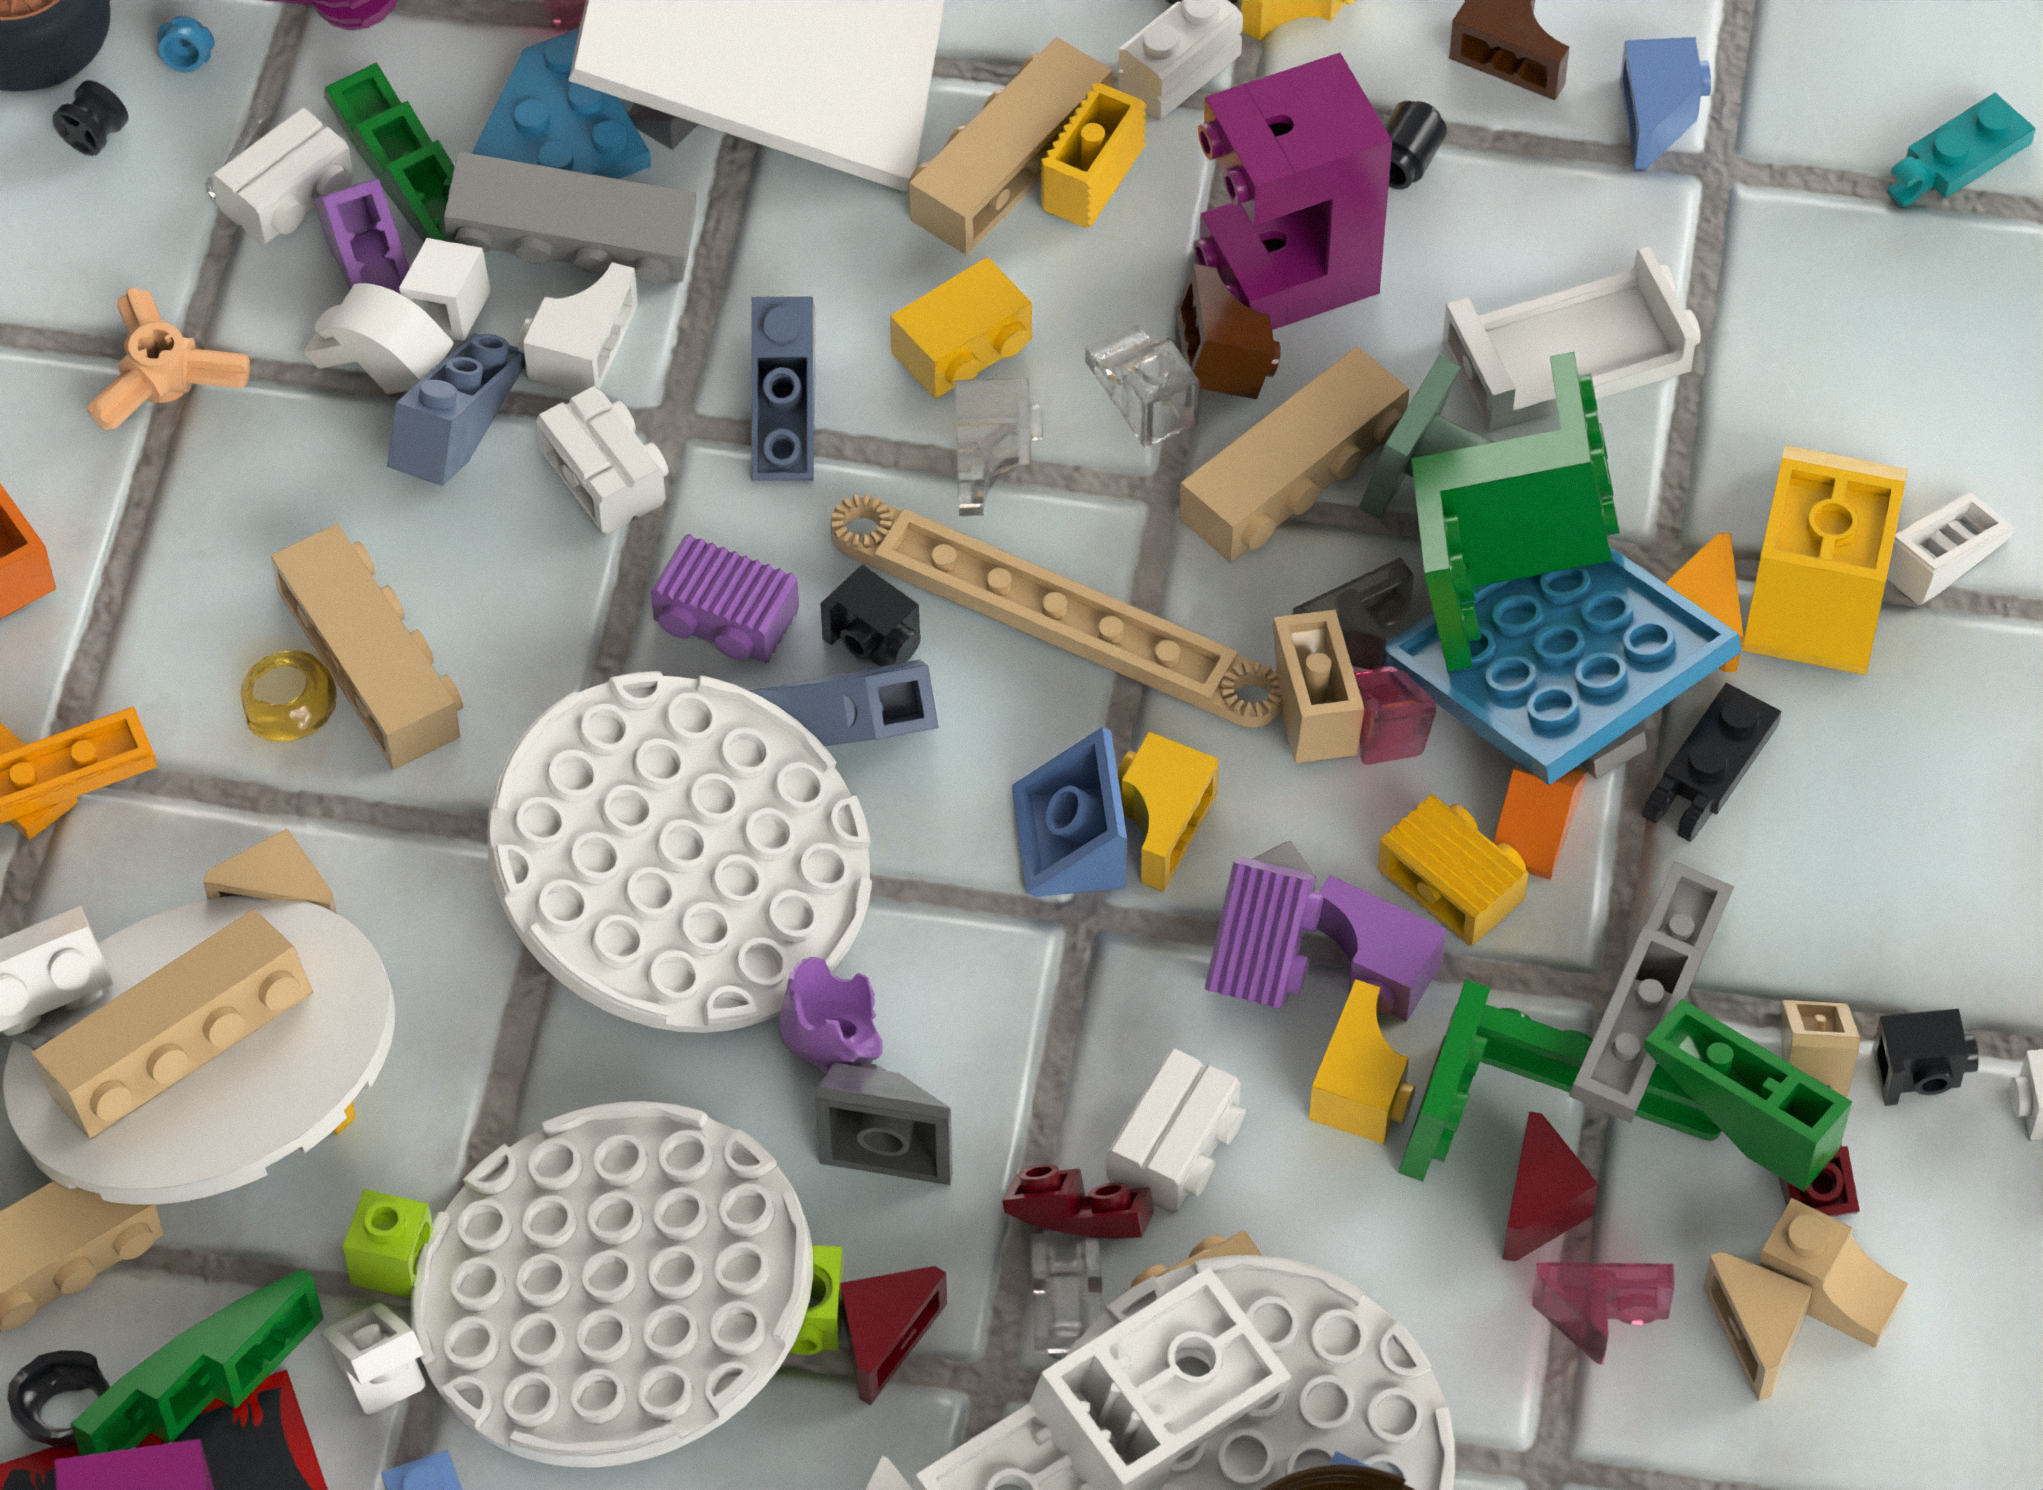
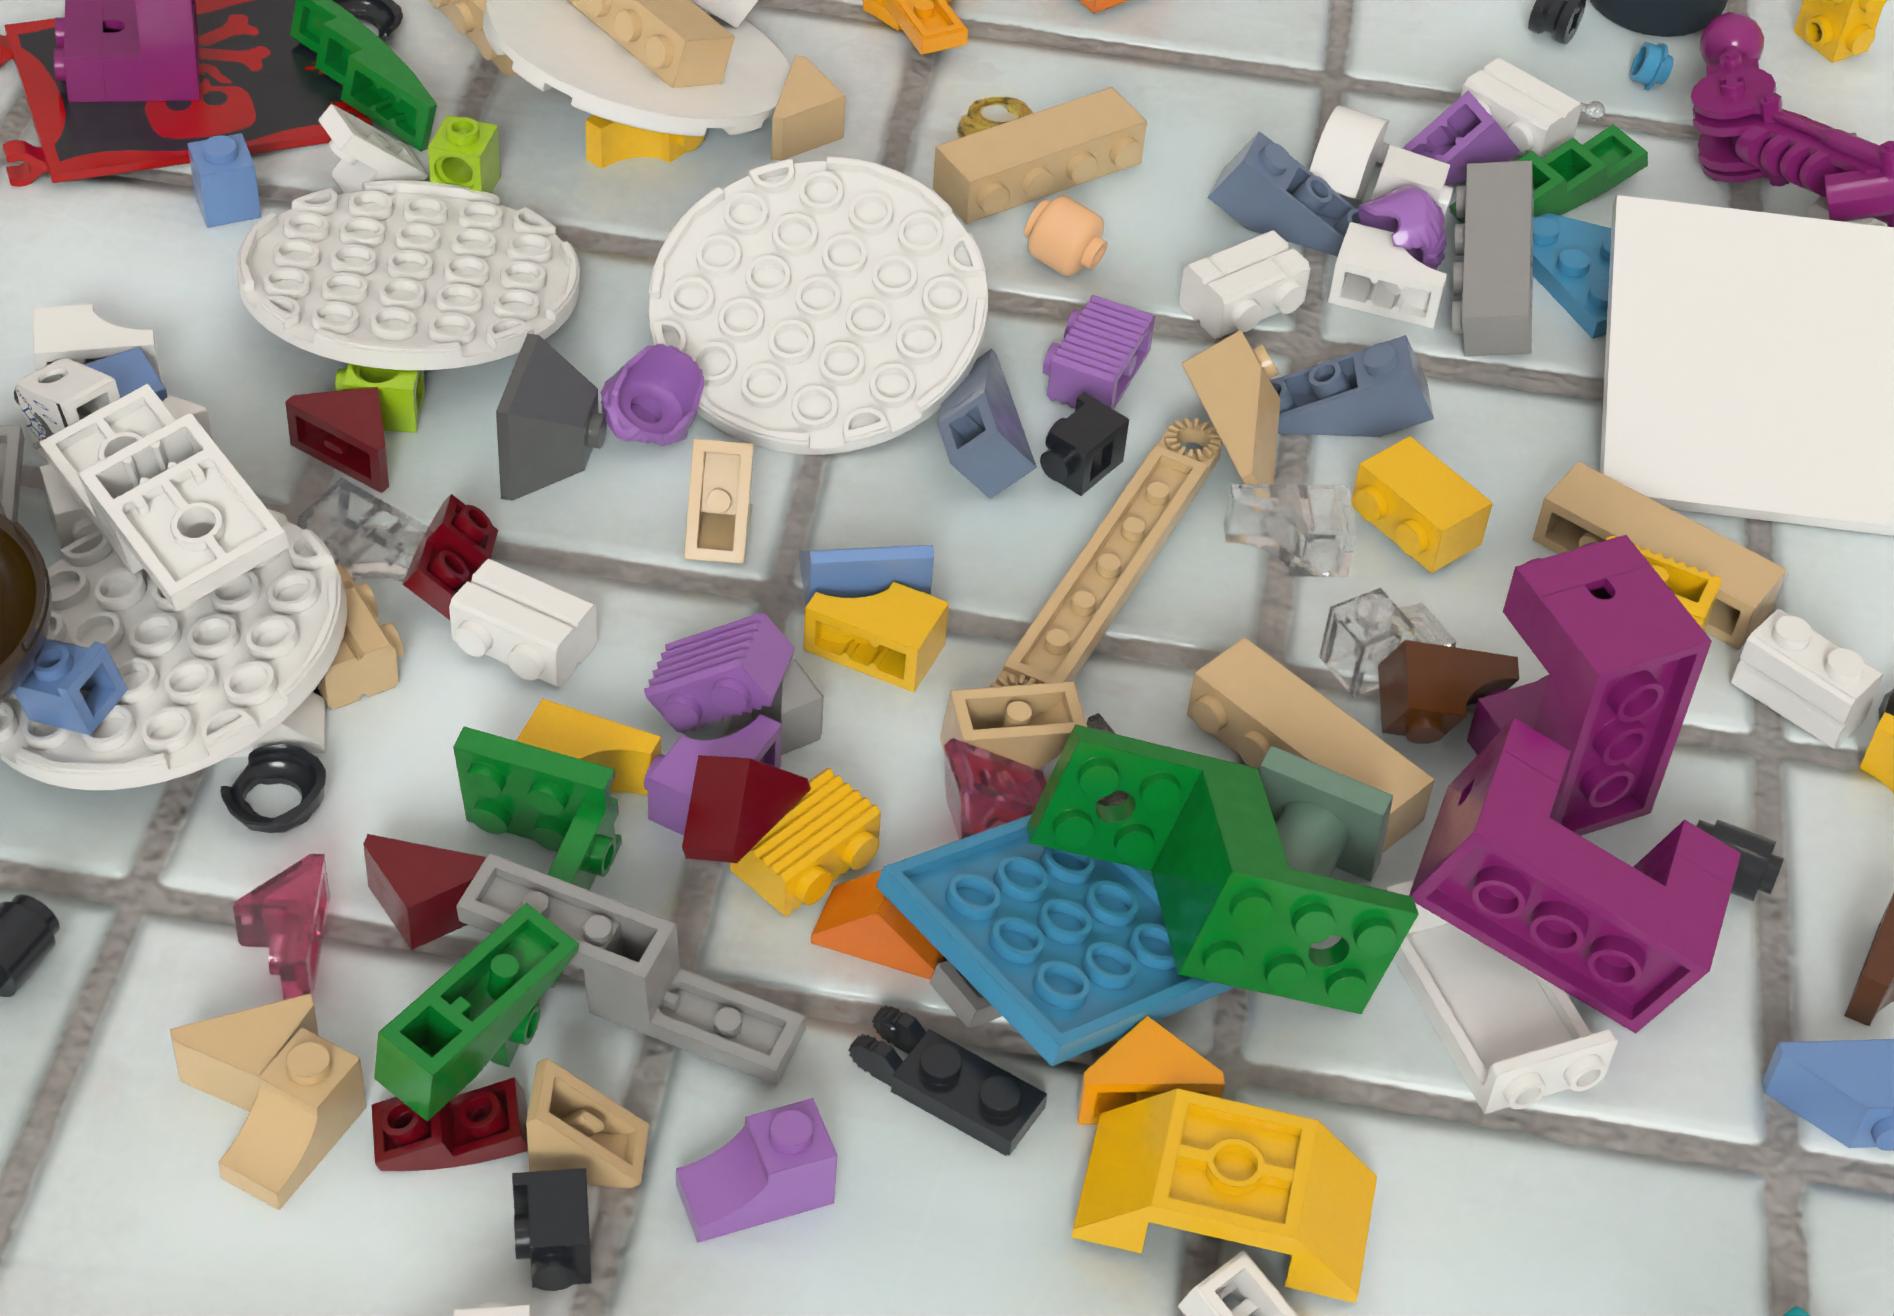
camera: 85 degrees right, 10 degrees down
(160, 364) = (1313, 47): light nougat bush -> none
(516, 287) = (1413, 219): none -> medium lavender hair
(522, 623) = (1065, 236): none -> light nougat head
(816, 470) = (1240, 403): none -> tan slope
(987, 954) = (719, 501): none -> tan slope
(1440, 1322) = (277, 765): none -> black piece
(1461, 899) = (736, 806): none -> dark red slope
(1498, 243) = (1560, 903): none -> magenta piece
(1842, 898) = (764, 1174): none -> medium lavender arch

